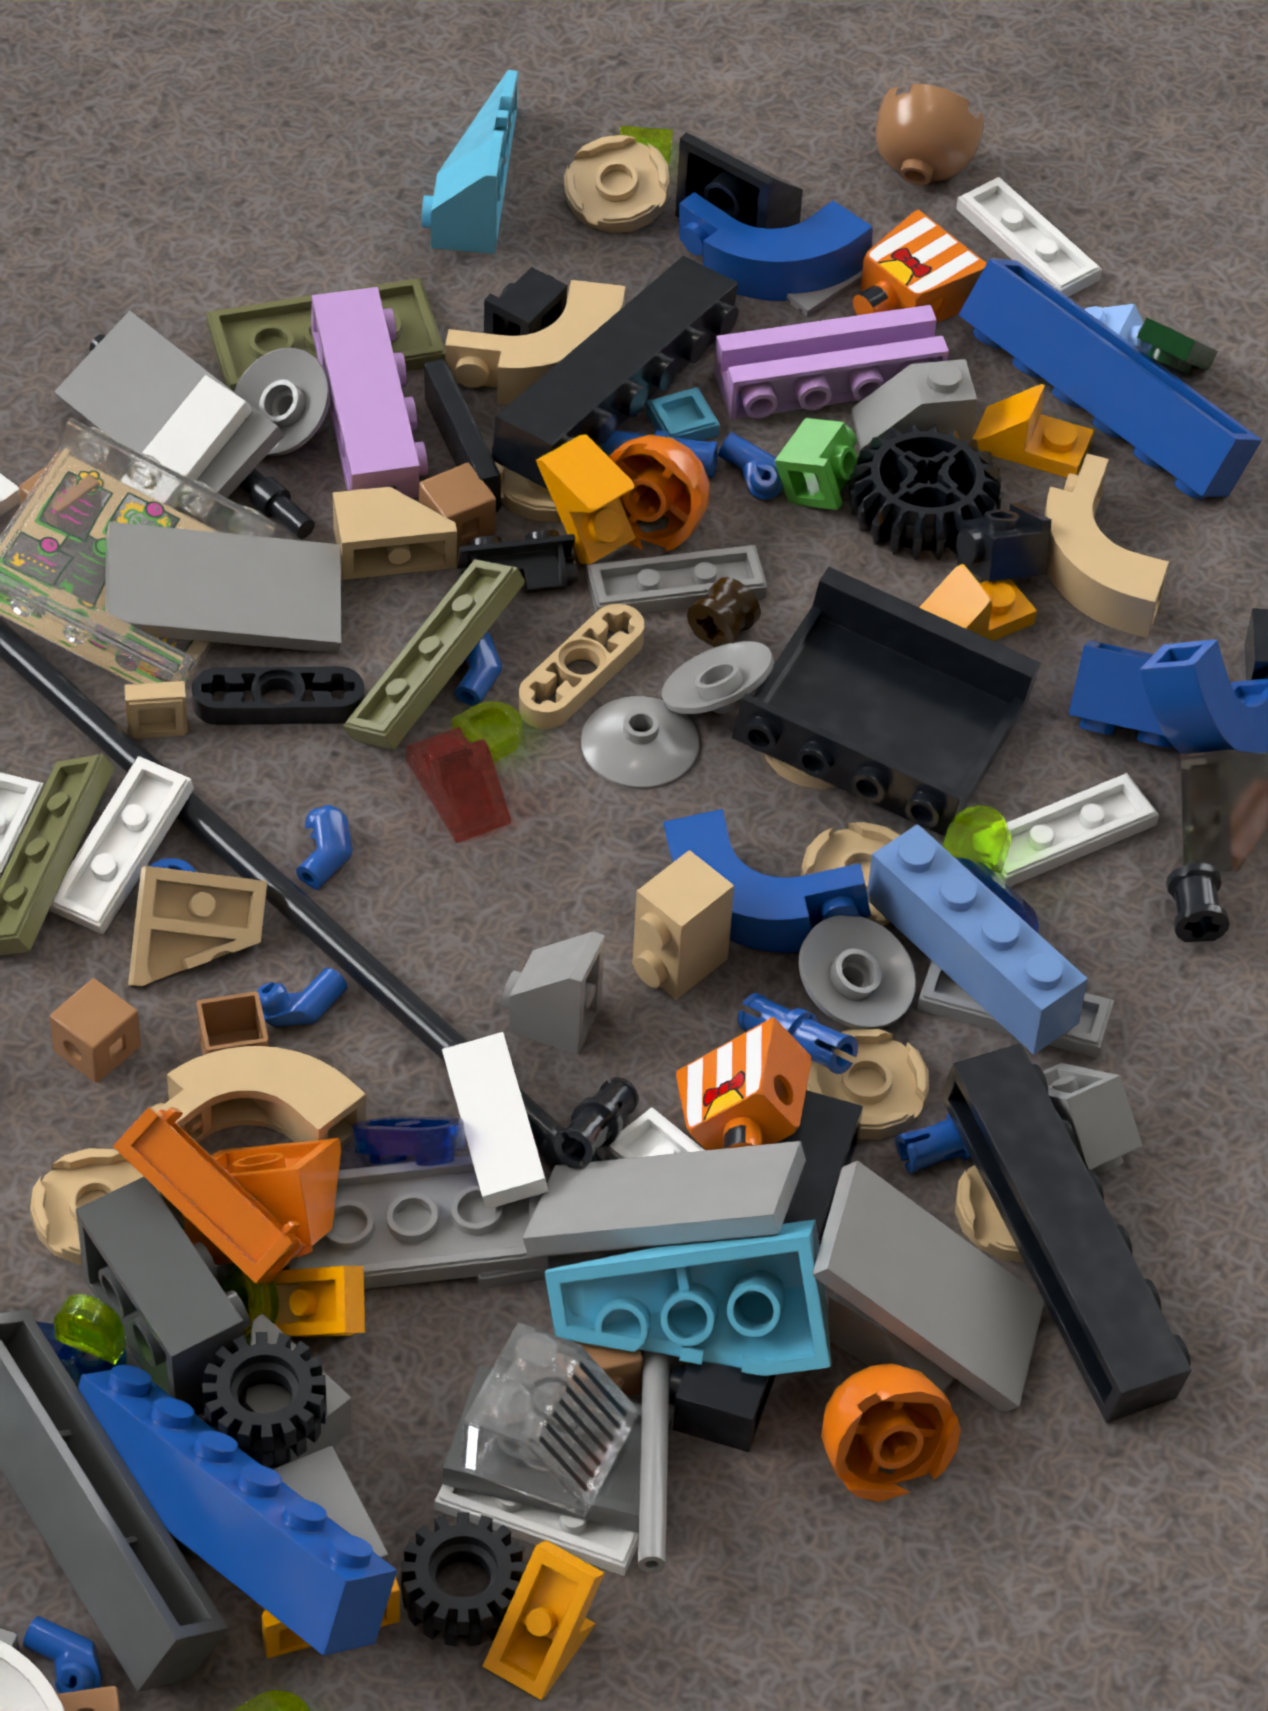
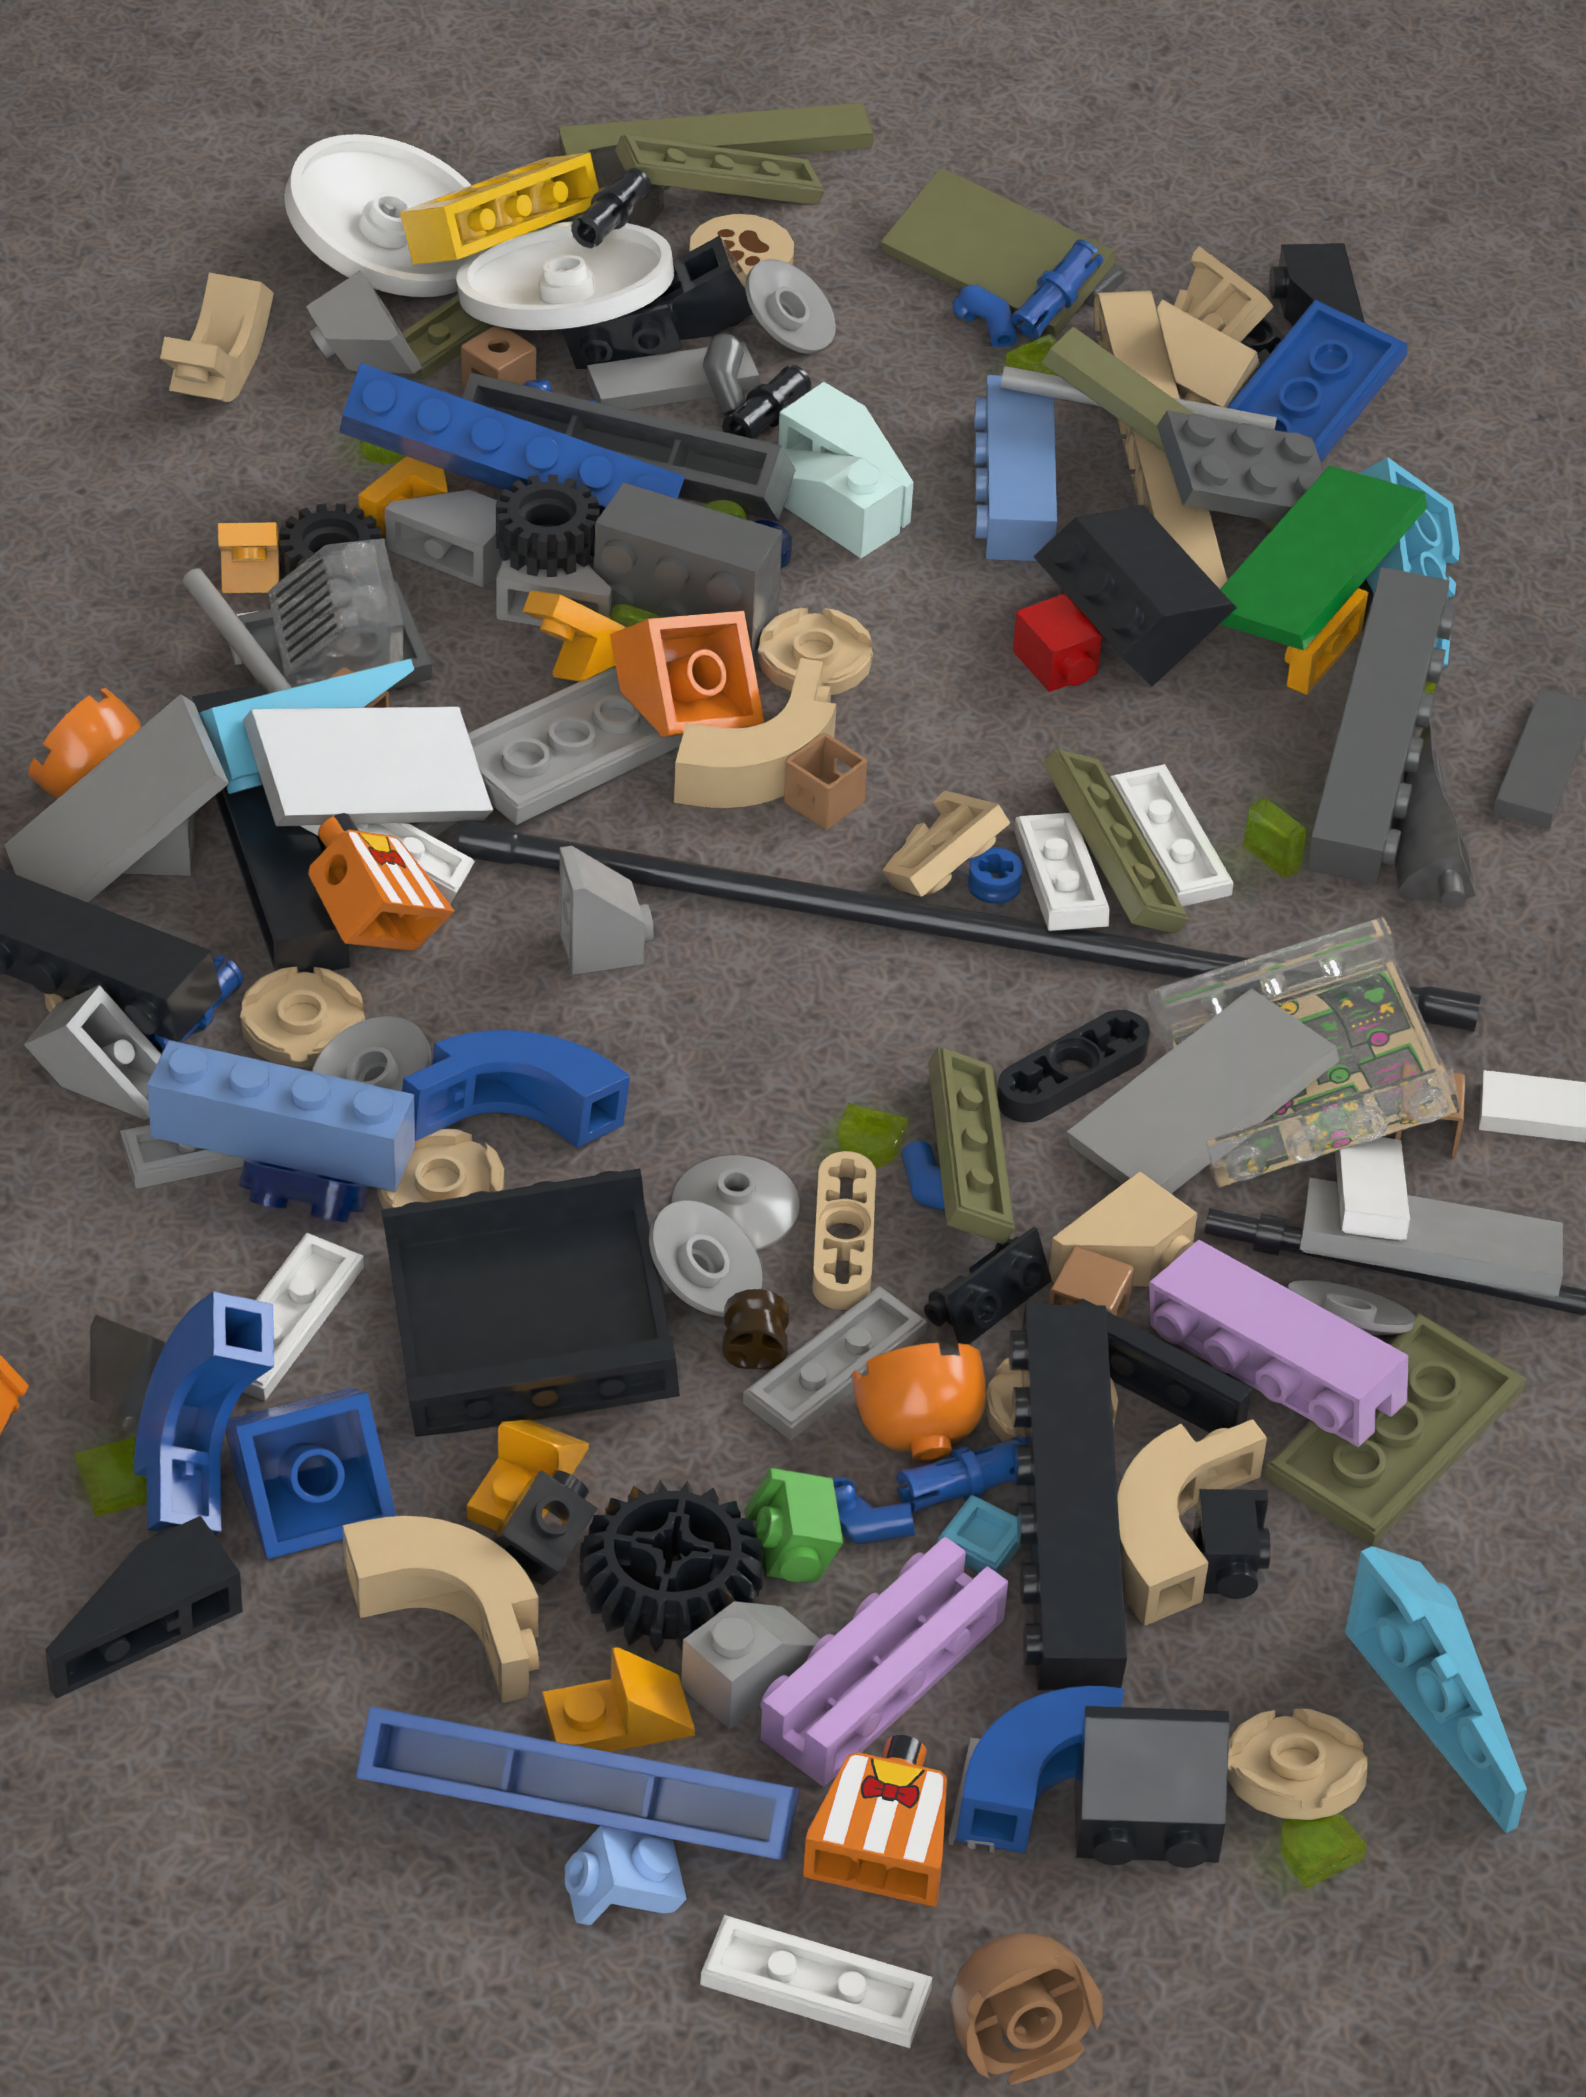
camera: 145 degrees right, 5 degrees down
(95, 1030) = (933, 736): medium nougat piece -> none
(156, 709) = (1154, 971): tan tile -> none
(209, 1195) = (701, 584): orange container -> none
(301, 1007) = (809, 842): blue arm -> none
(332, 842) = (908, 972): blue arm -> none
(397, 1137) = (615, 763): clear blue plate -> none
(460, 783) = (845, 1071): clear red slope -> none
(495, 1121) = (561, 796): white tile -> none
(587, 495) = (967, 1309): light orange slope -> none
(596, 1122) = (485, 846): black pin -> none
(682, 925) = (540, 983): tan brick -> none
(804, 1027) = (381, 995): blue pin -> none
(979, 835) = (350, 1235): clear neon green tile -> none
(1175, 348) = (532, 1866): dark green plate -> none
(1197, 903) = (111, 1290): black bush -> none

